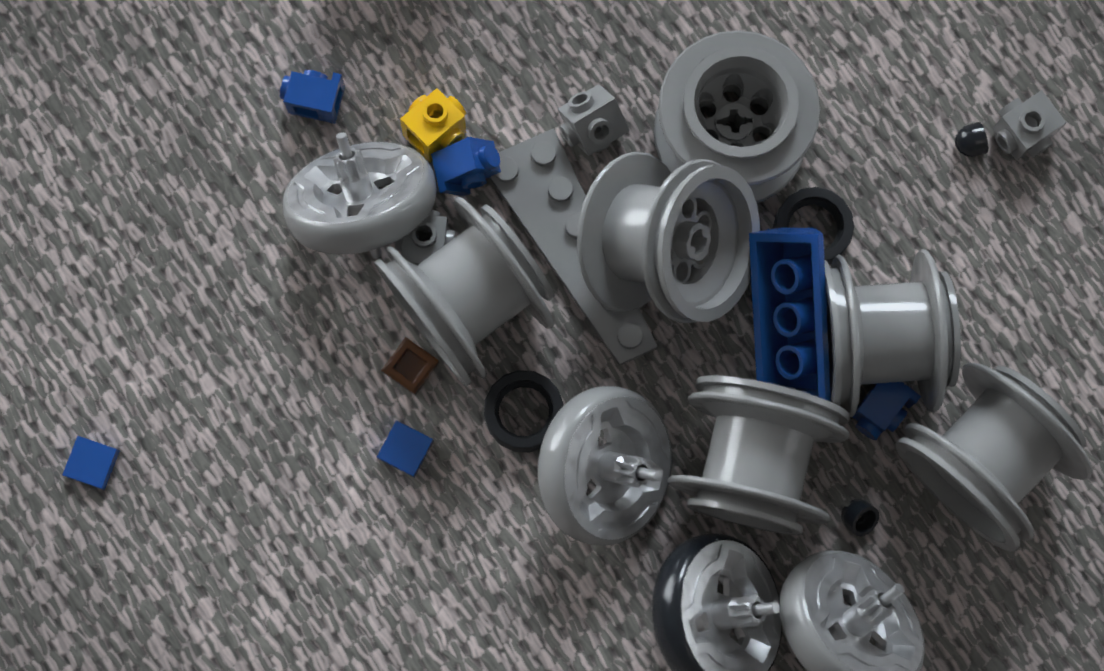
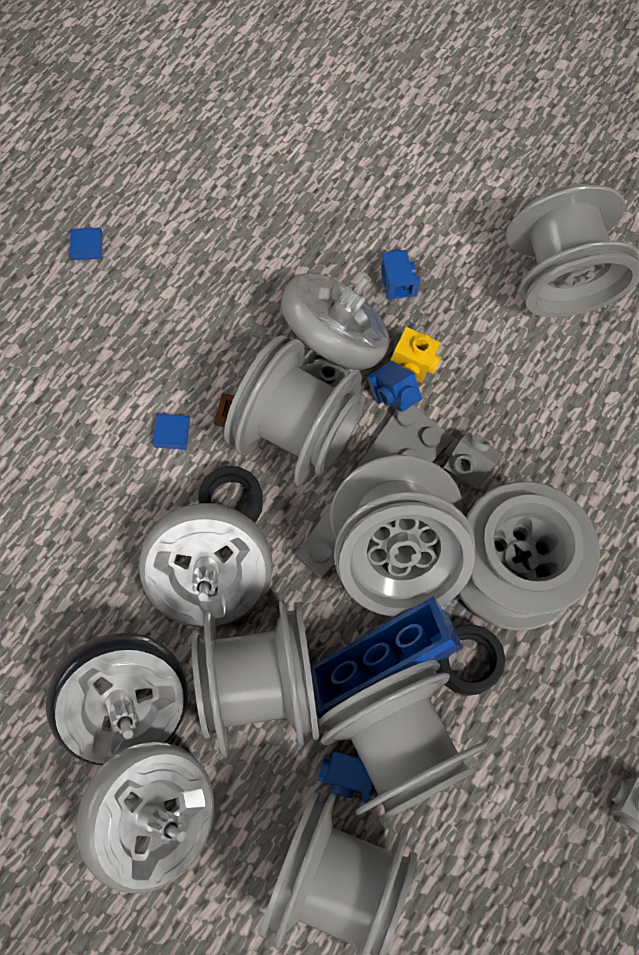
camera: 65 degrees right, 10 degrees down
(868, 519) = (244, 800): black hinge -> none
(972, 140) = (606, 763): black hinge -> none

